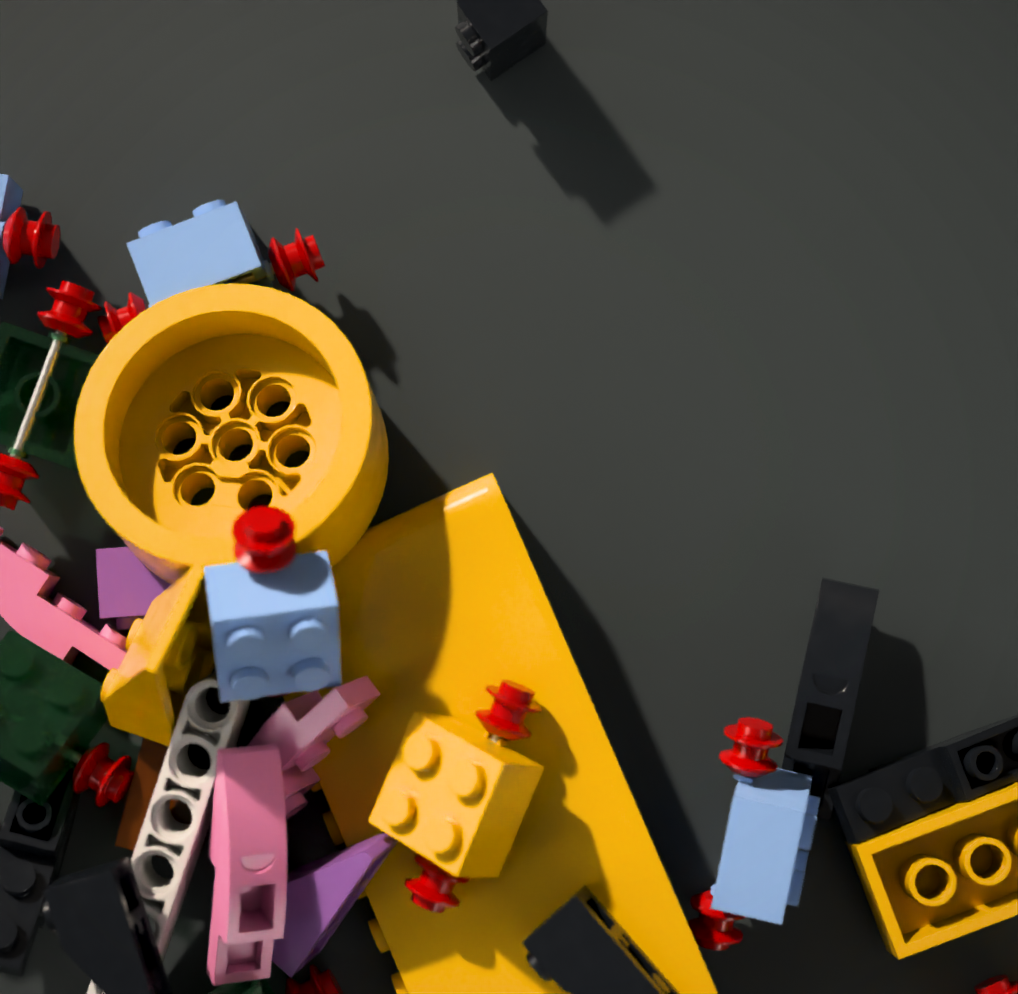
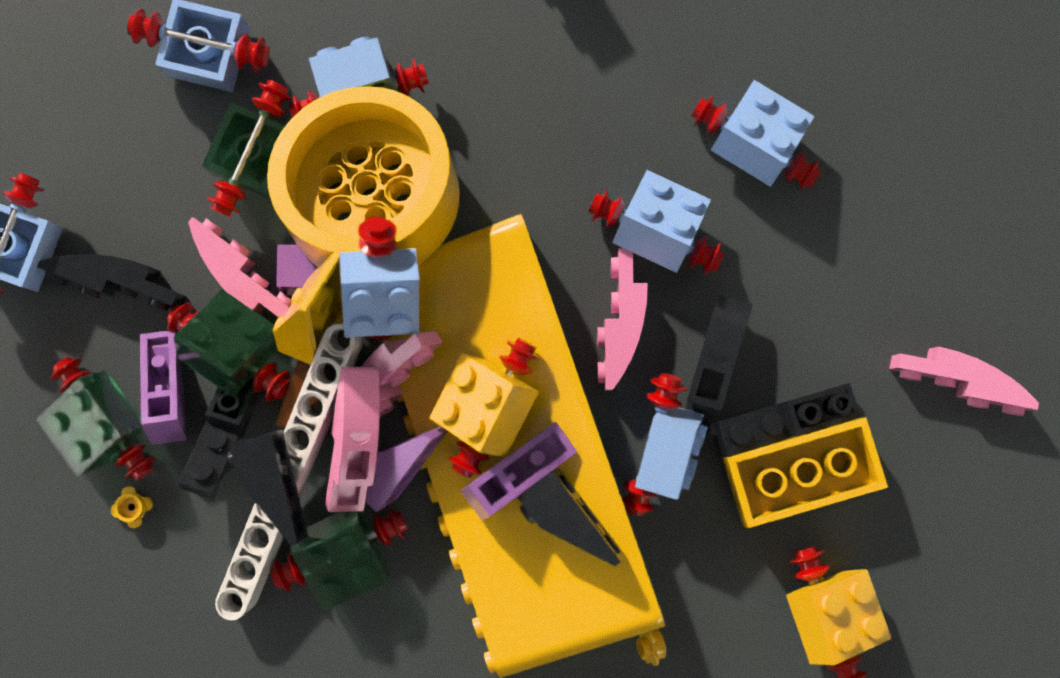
camera: 15 degrees right, 0 degrees up
(520, 898) = (518, 471): none -> medium lavender slope
(667, 657) = (621, 335): none -> bright pink slope
(719, 470) = (660, 223): none -> light blue brick
(872, 313) = (761, 135): none -> light blue brick

